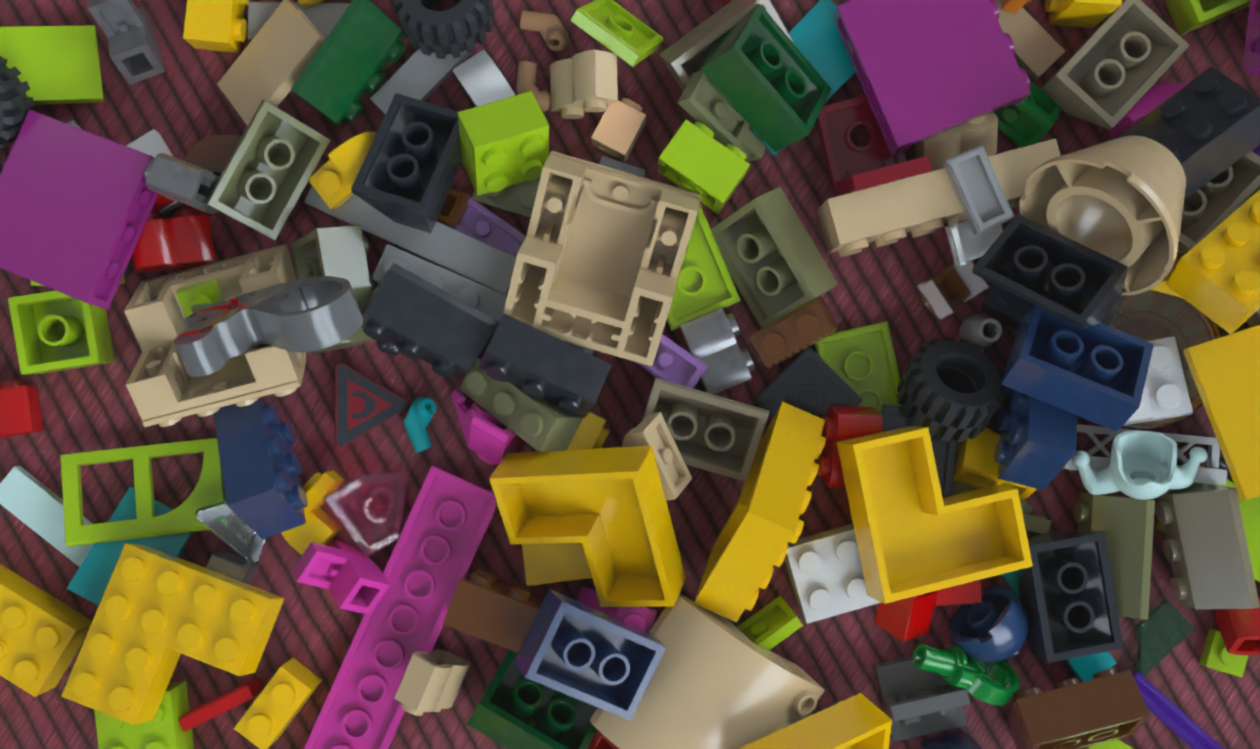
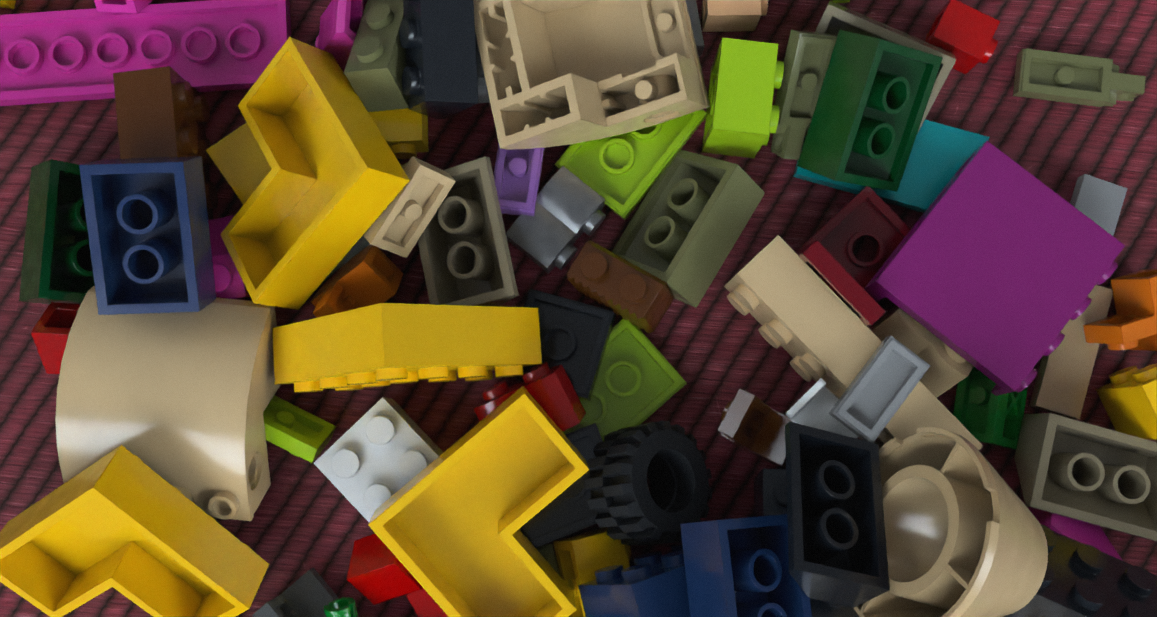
camera: 60 degrees right, 5 degrees down
(431, 681) = (55, 104): tan brick -> none
(695, 528) = (360, 282): none -> orange brick
(972, 331) = (719, 482): light grey cone -> none

